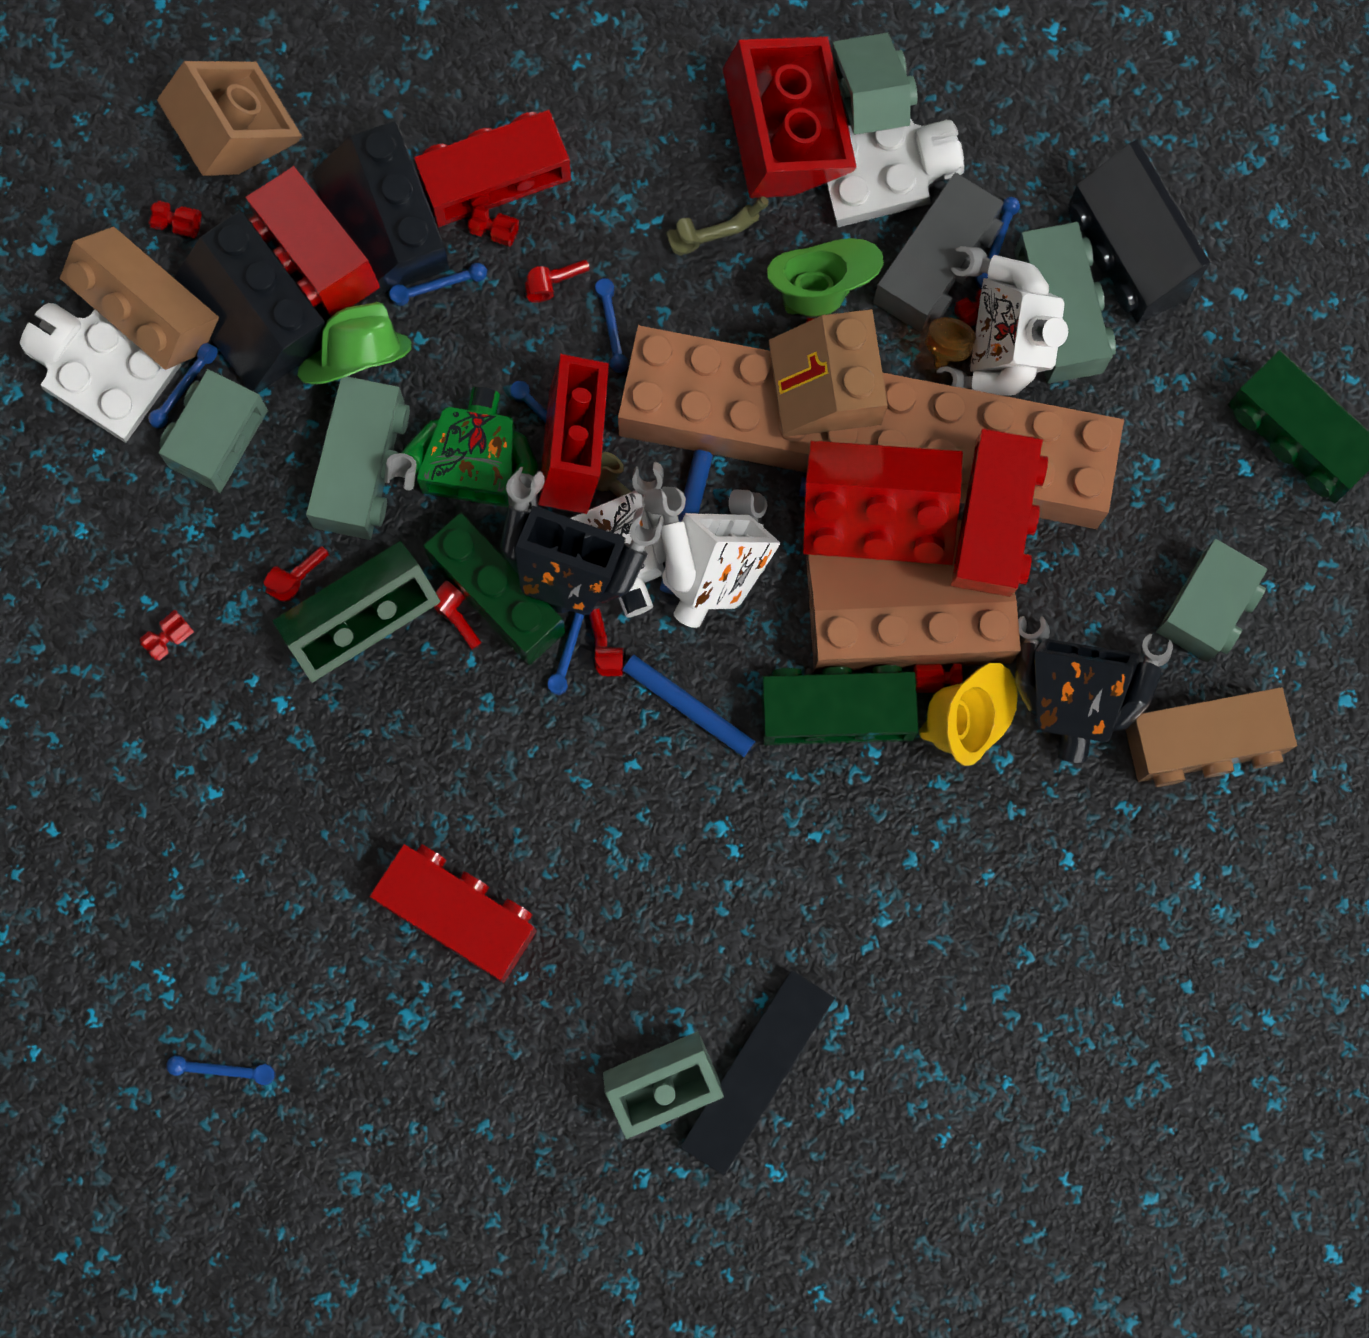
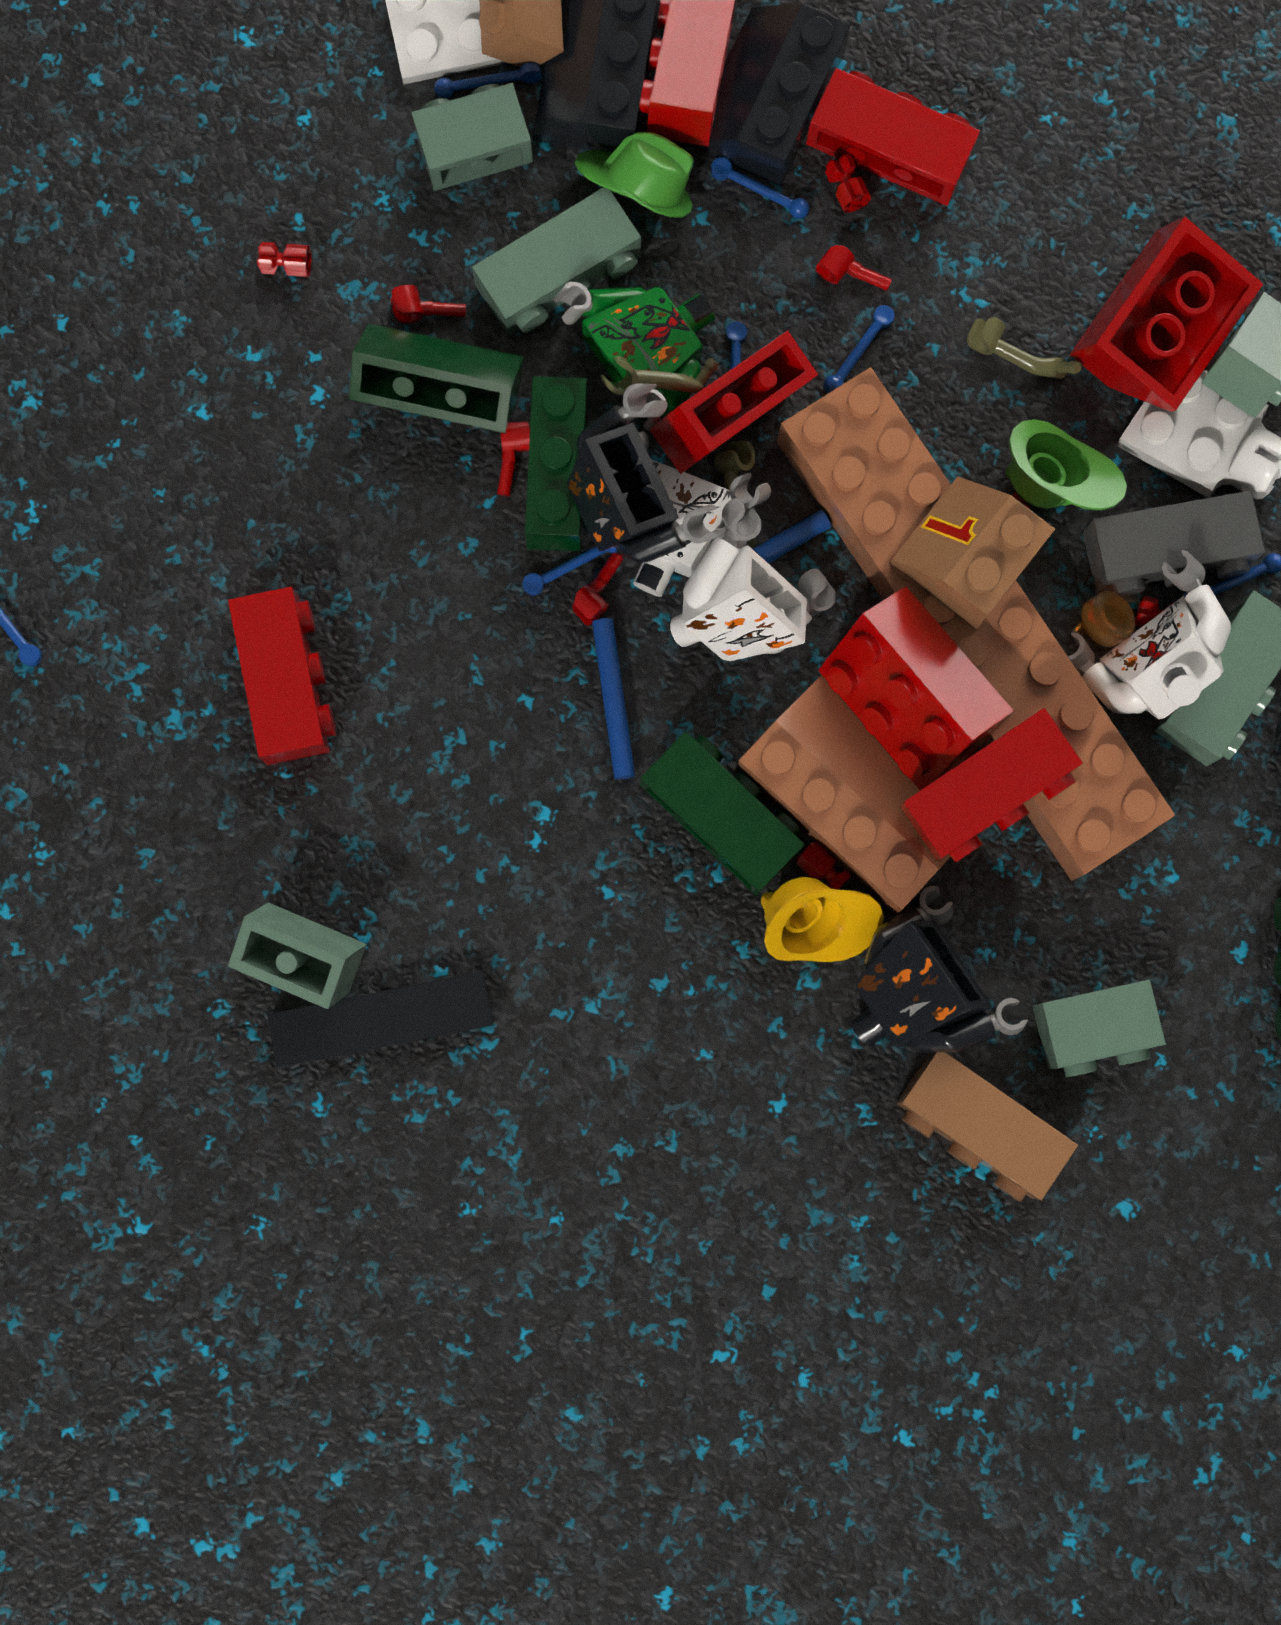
camera: 45 degrees right, 5 degrees up
(492, 481) = (664, 380): none -> olive piece

